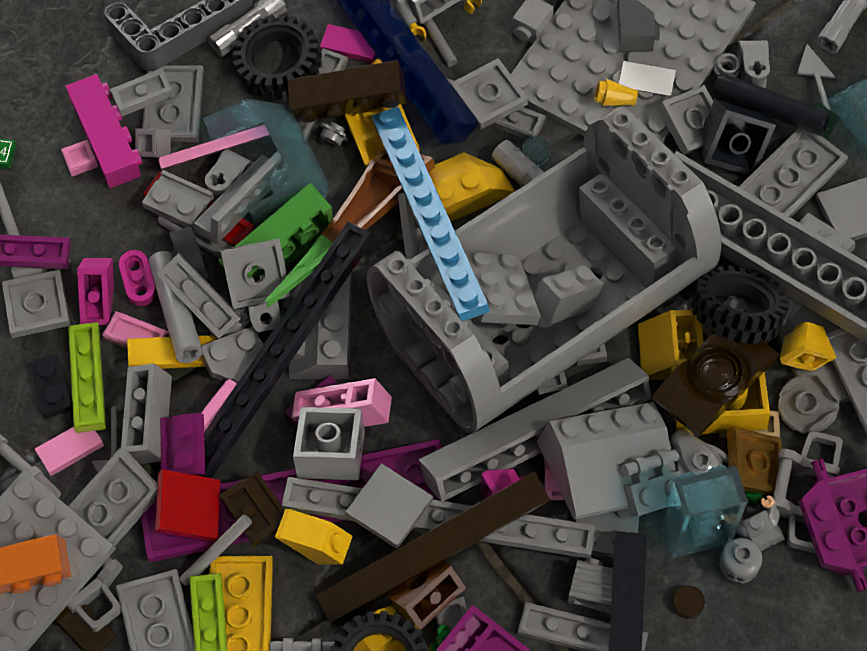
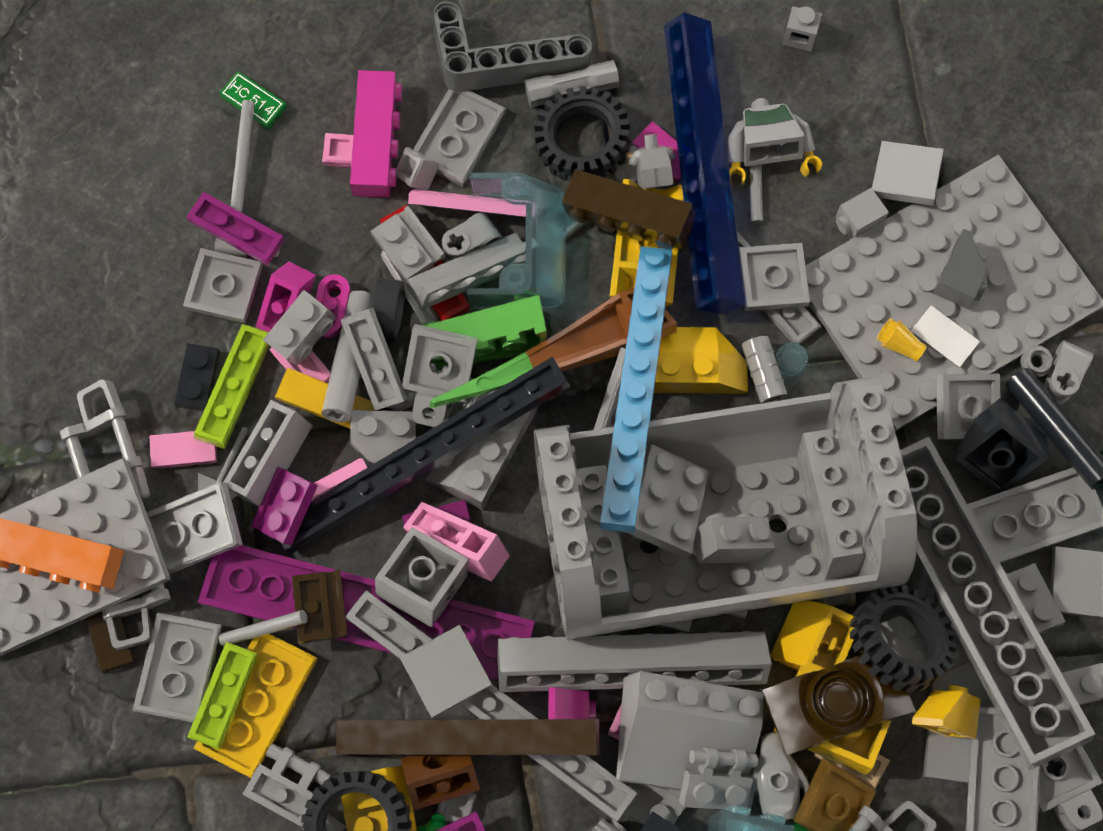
camera: 25 degrees right, 10 degrees up
(123, 301) = (300, 328): none -> light grey brick
(142, 92) = (430, 111): light grey plate -> none
(187, 505) = (256, 572): red tile -> none
(314, 537) = (360, 664): yellow slope -> none
(333, 133) = (597, 244): light grey plate -> none
(346, 50) = (652, 163): none -> light grey piece
(808, 403) = (922, 769): light grey tile -> none

